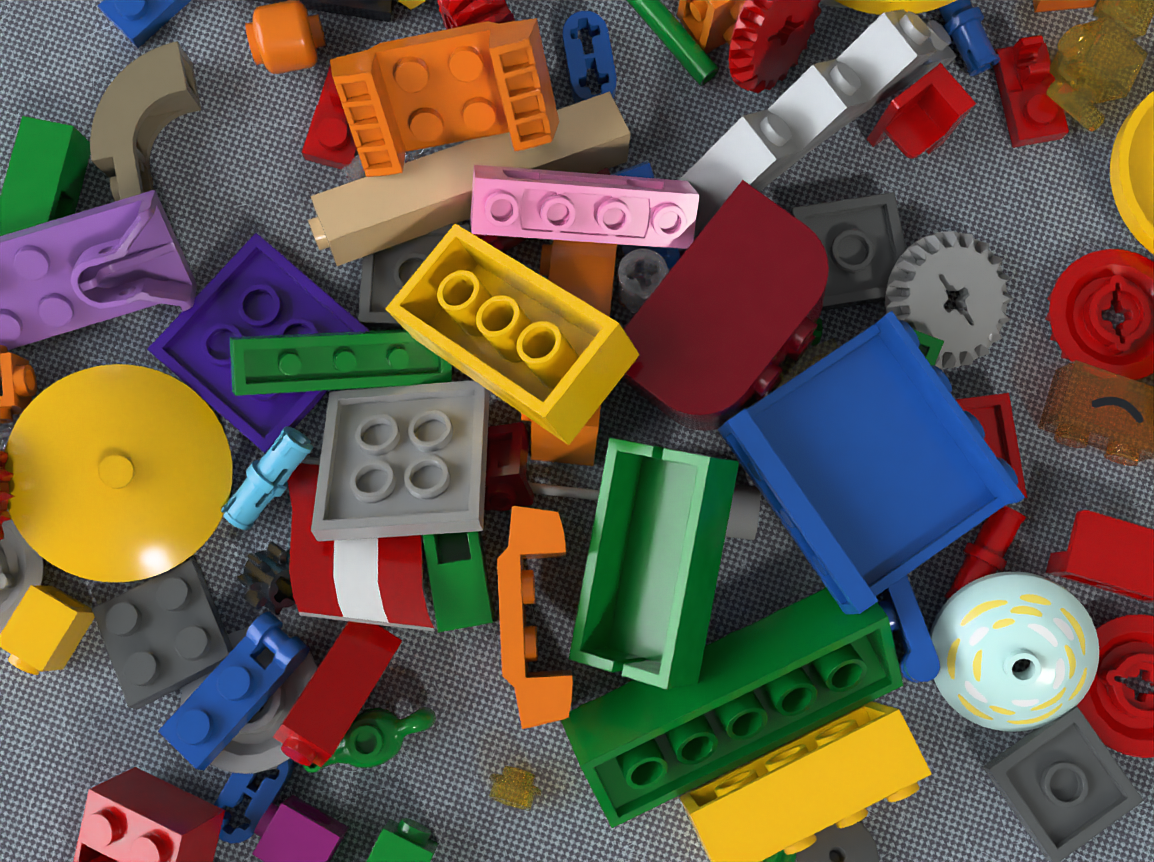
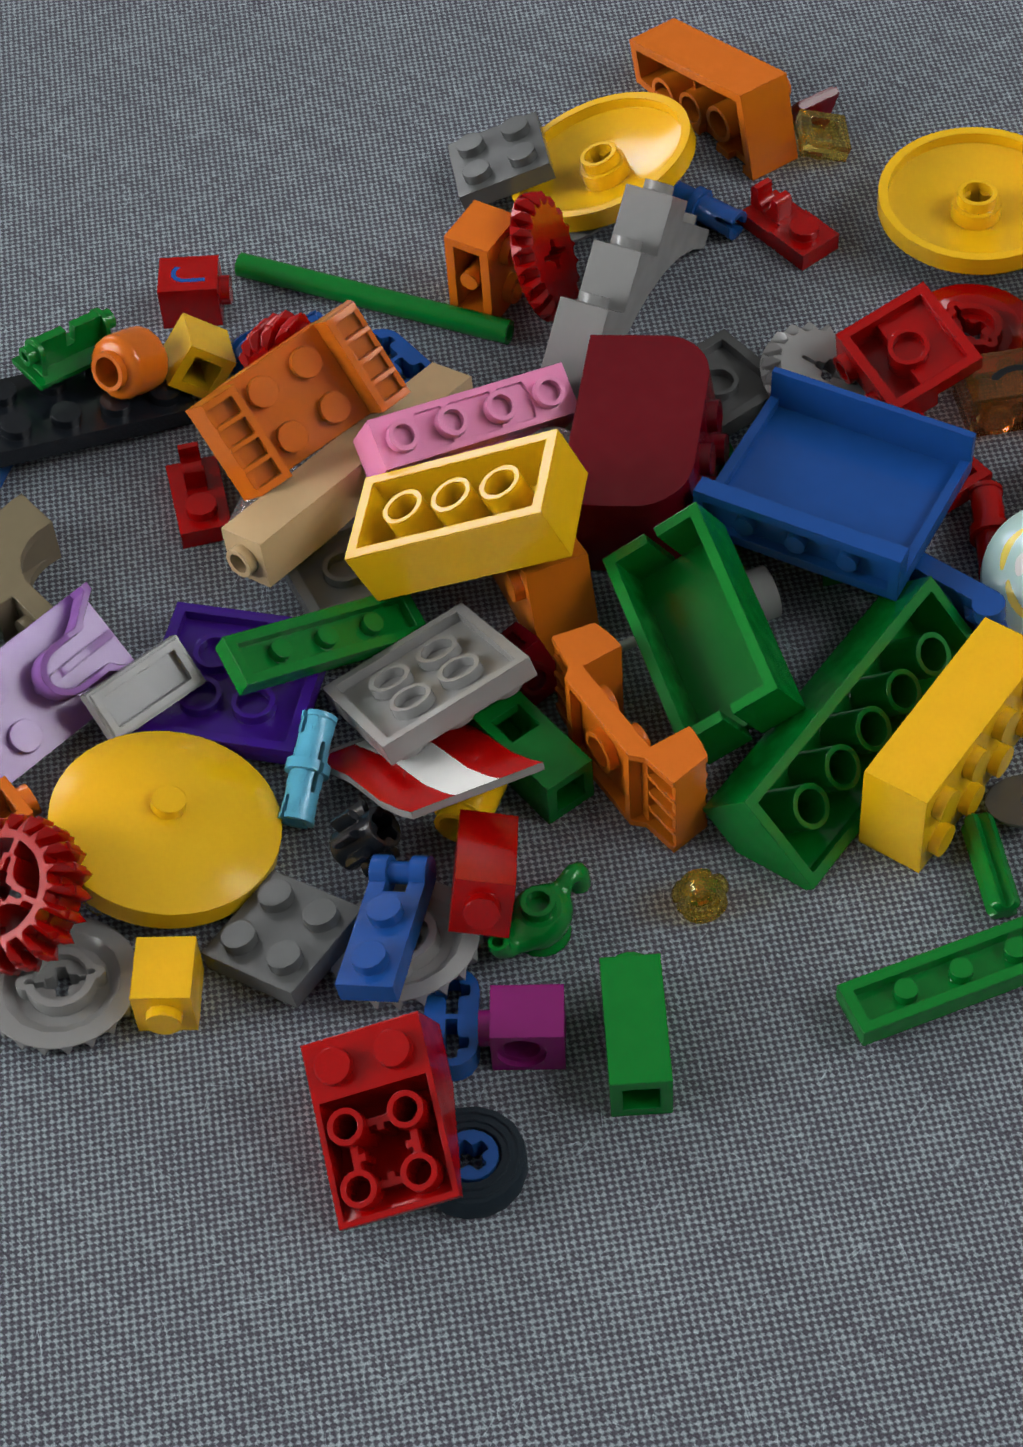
camera: 20 degrees left, 30 degrees down
(165, 327) = (143, 688): none -> light grey tile
(285, 37) = (114, 458): orange head -> none
(924, 114) = (708, 260): red panel -> none
(1030, 338) = (906, 351): none -> red plate
(1092, 67) = (826, 180): clear yellow brick -> none

